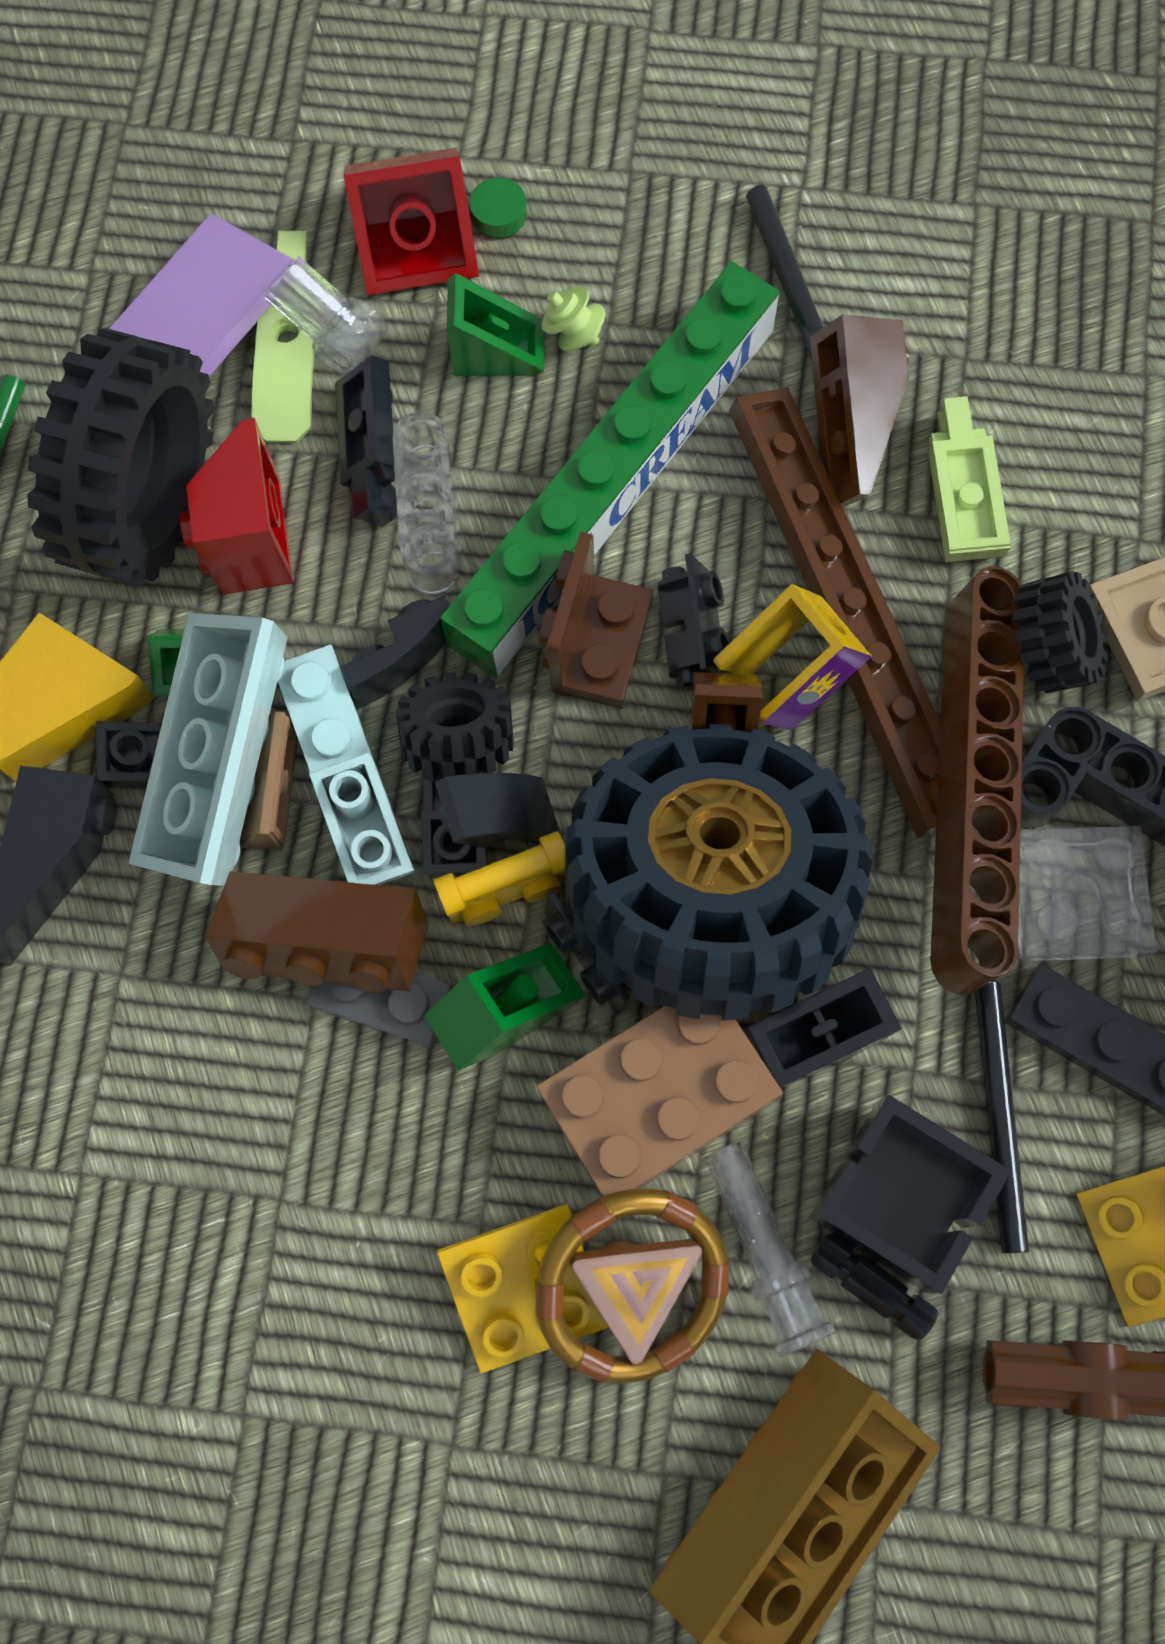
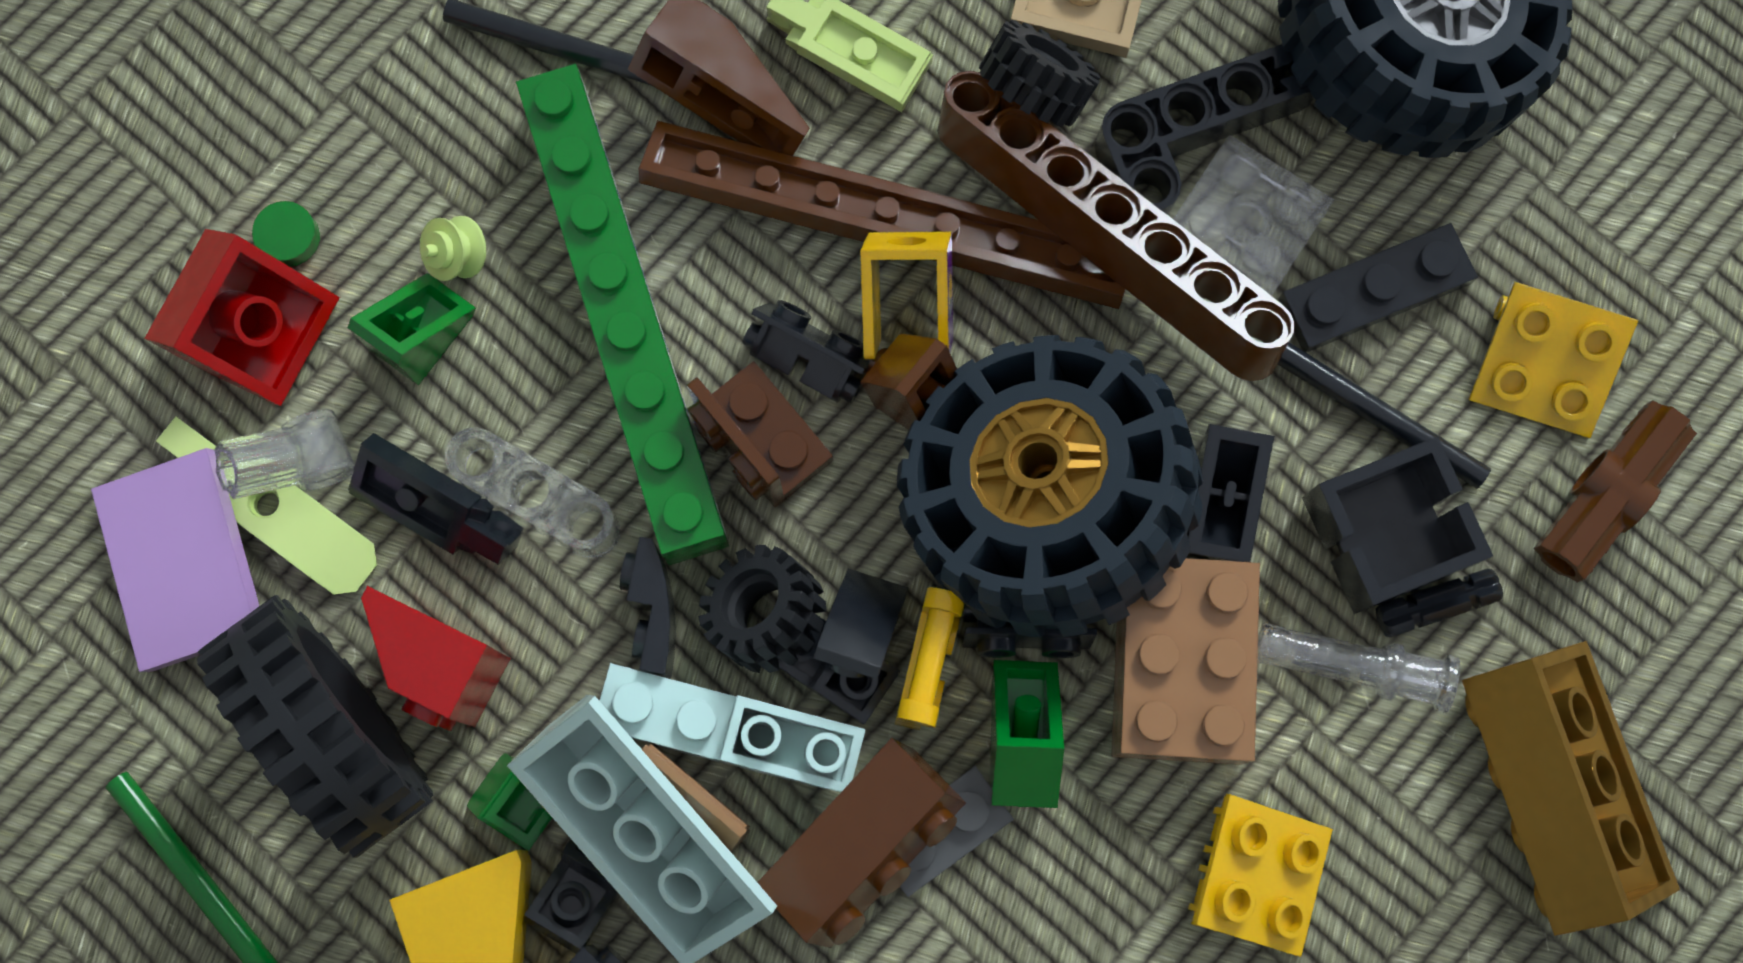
camera: 60 degrees left, 5 degrees up
(633, 1286) = (1322, 786): piece -> none

